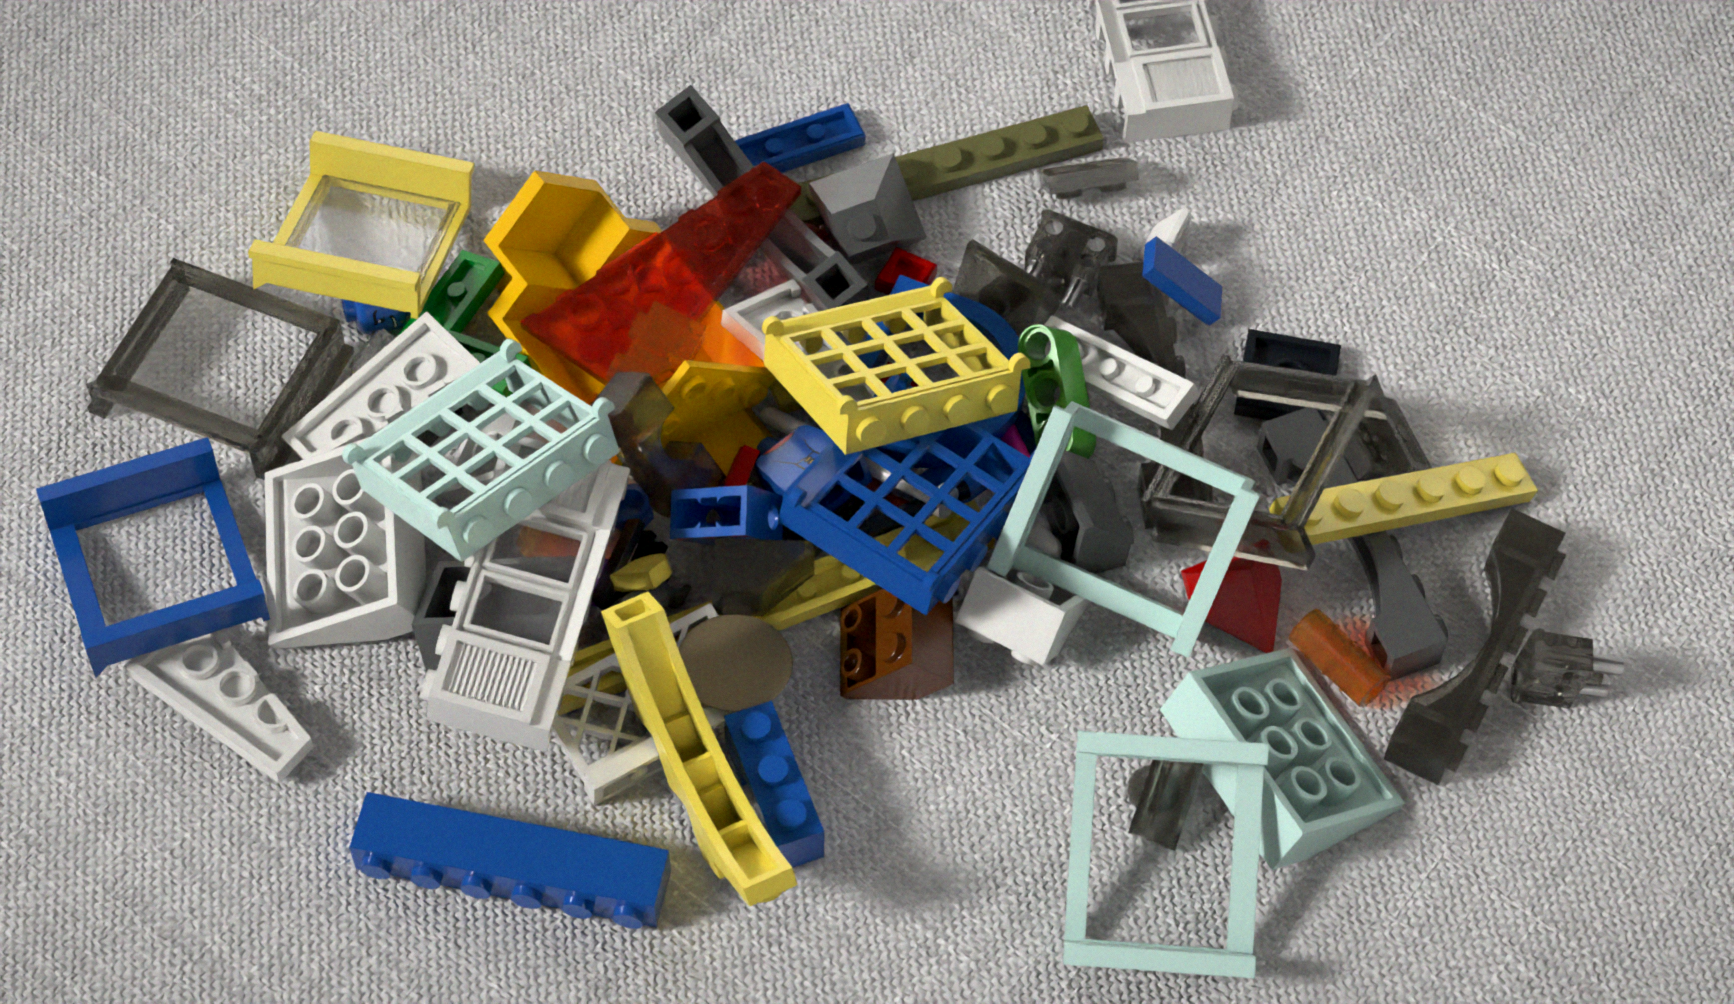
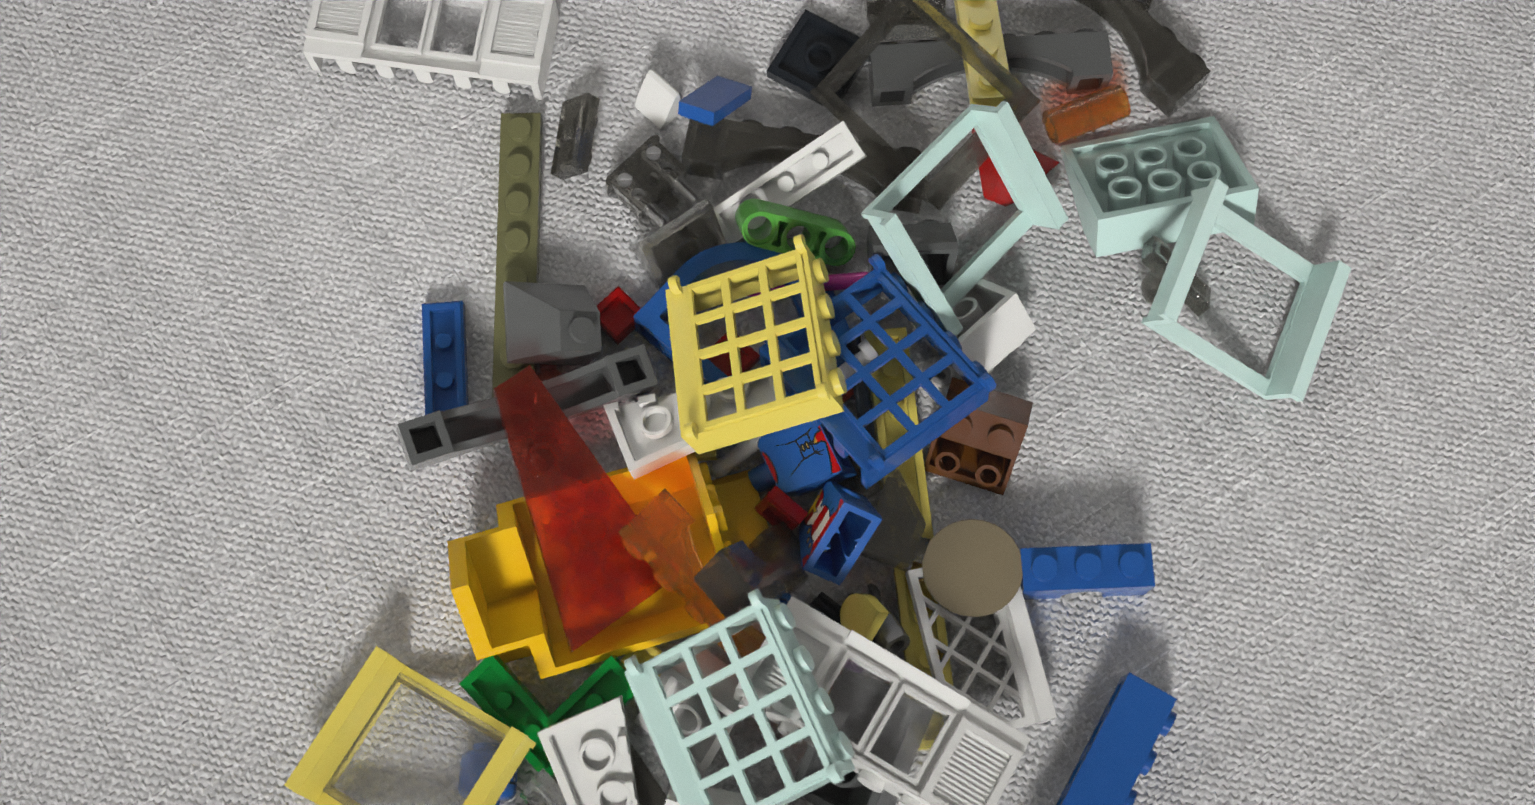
camera: 70 degrees left, 15 degrees up
(691, 757) = (1059, 628): light yellow arch -> none

